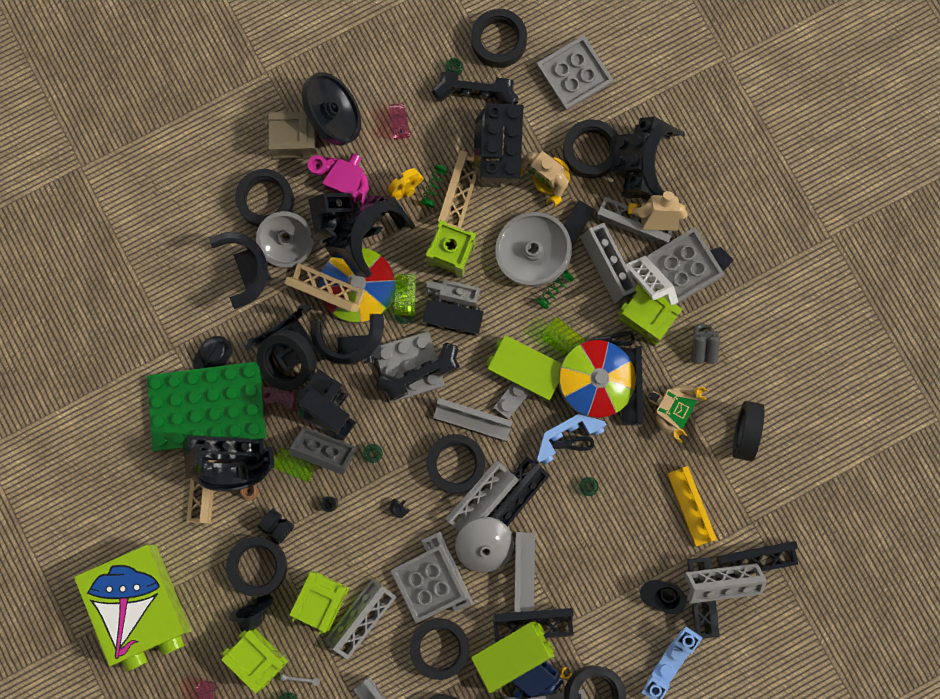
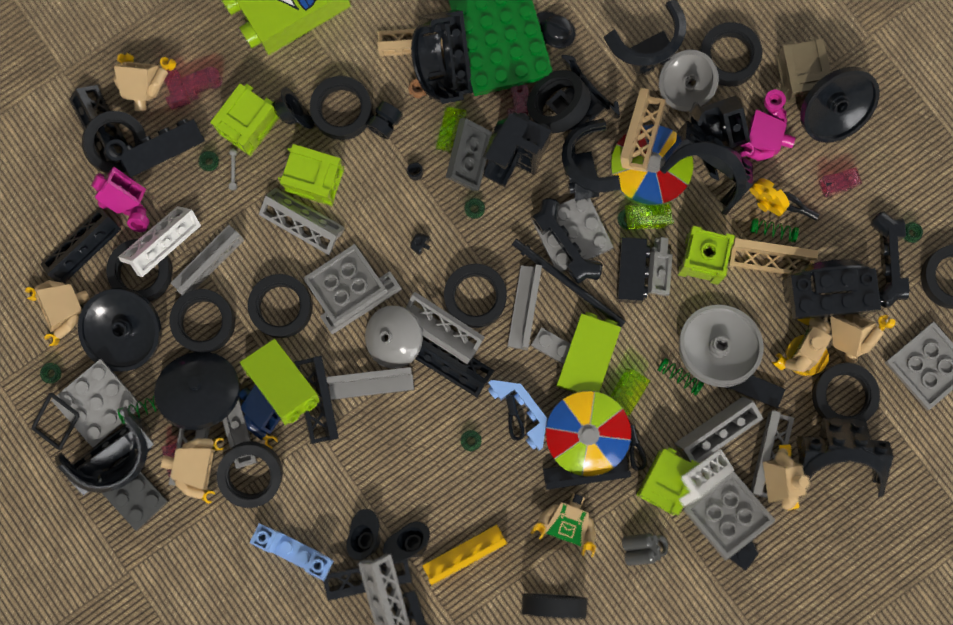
camera: 85 degrees right, 0 degrees up
(418, 157) = (803, 208): none -> black piece
(420, 411) = (525, 250): none -> black bar
(540, 130) = (857, 334): none -> tan torso
(674, 556) = (408, 542): none -> black piece

